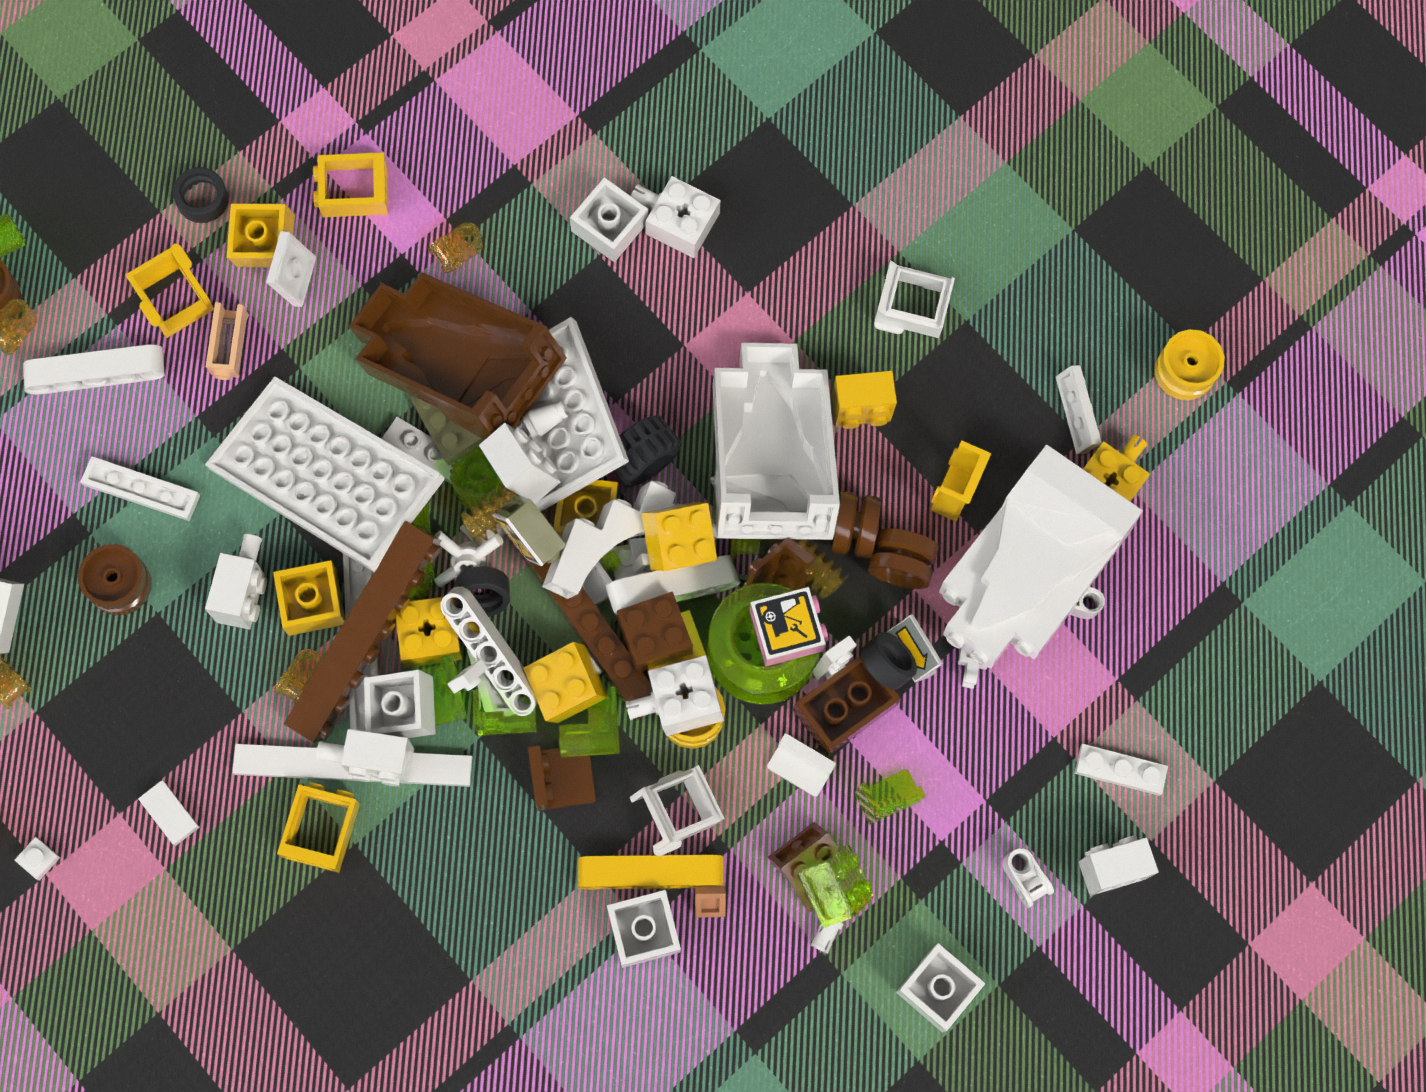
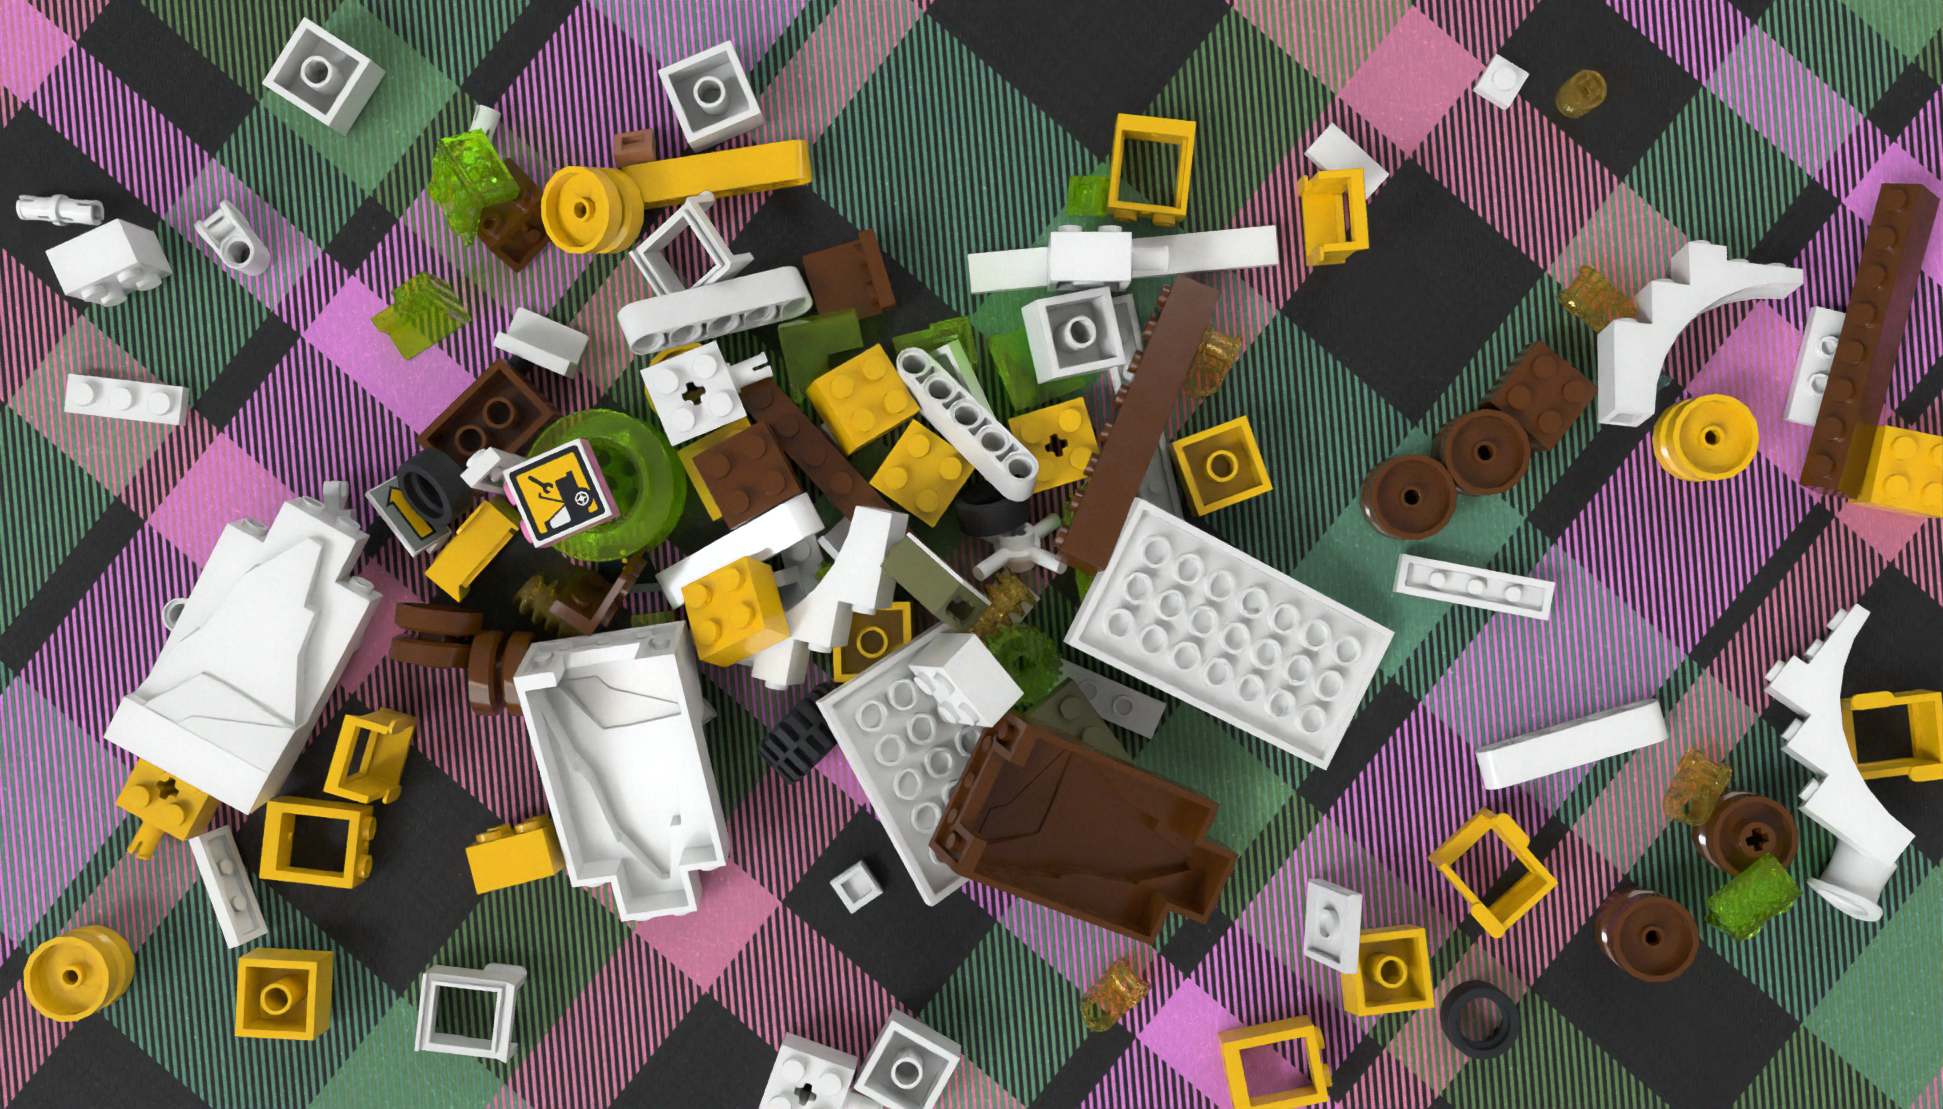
camera: 175 degrees right, 15 degrees up
(62, 616) = (1540, 394): none -> reddish brown brick
(70, 233) = (1646, 934): none -> reddish brown wheel
(171, 540) = (1424, 481): none -> reddish brown wheel
(194, 765) = (1325, 215): none -> yellow piece
(226, 342) = (1400, 810): light nougat window -> none
(237, 586) = (1316, 467): white brick -> none
(370, 814) = (1087, 196): none -> clear neon green plate
(468, 677) = (988, 381): white plate -> none
(531, 624) = (923, 473): none -> yellow brick
(544, 418) = (943, 751): white cone -> none
(627, 347) = (856, 886): none -> white tile
(663, 762) = (714, 310): none -> white beam
(746, 852) = (592, 210): none -> yellow wheel
(867, 615) = (474, 546): none -> yellow piece
(1005, 453) = (279, 840): none -> yellow window
(1044, 330) = (284, 993): none -> yellow brick
(1157, 919) = (60, 210): none -> white pin

